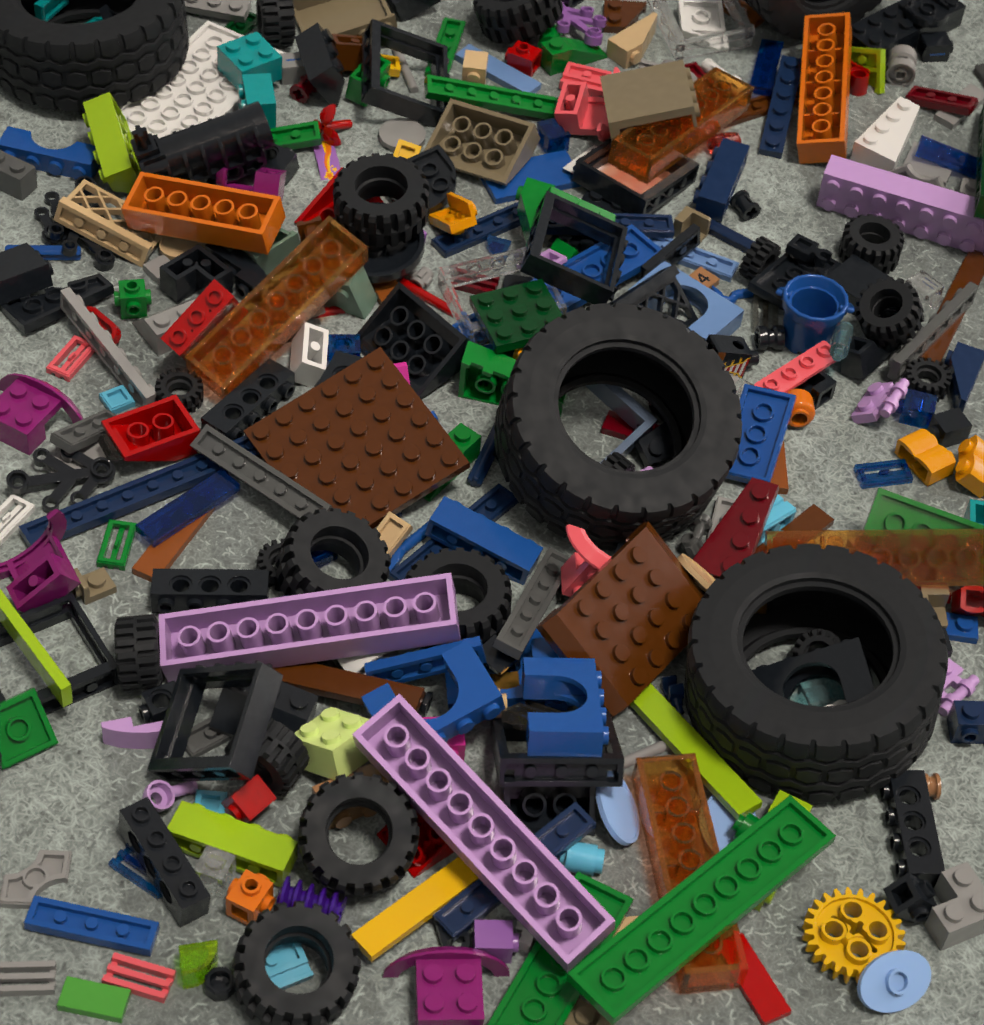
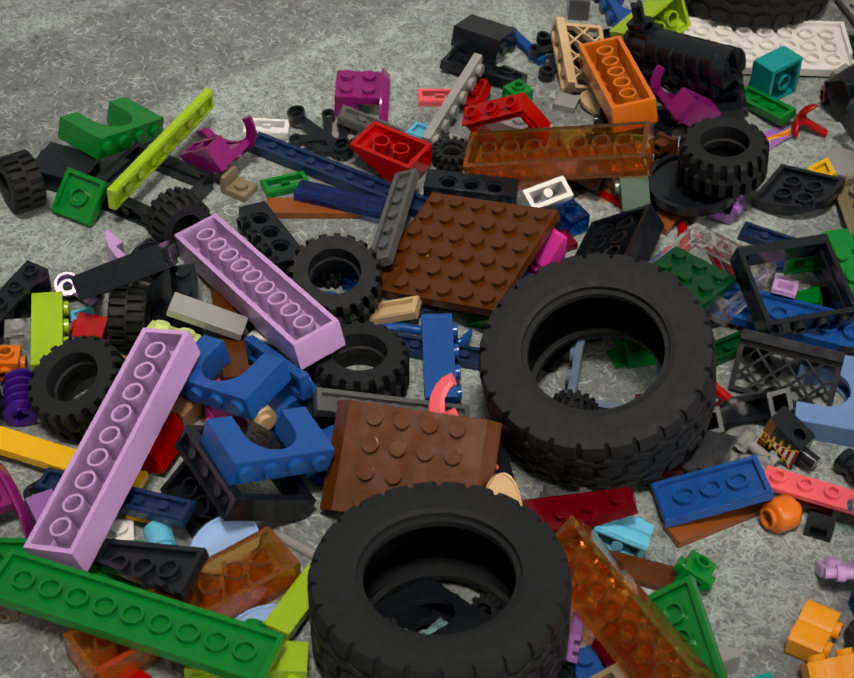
camera: 65 degrees right, 5 degrees down
(192, 273) = (567, 109): black brick -> none
(248, 56) = (818, 49): teal brick -> none
(324, 686) = (207, 316): none -> light grey tile
(455, 218) = (777, 221): light orange bracket -> none
(645, 863) = (153, 565): none -> black wing
(836, 496) = (697, 566): none -> green brick
(884, 477) = (763, 613): clear blue tile -> none

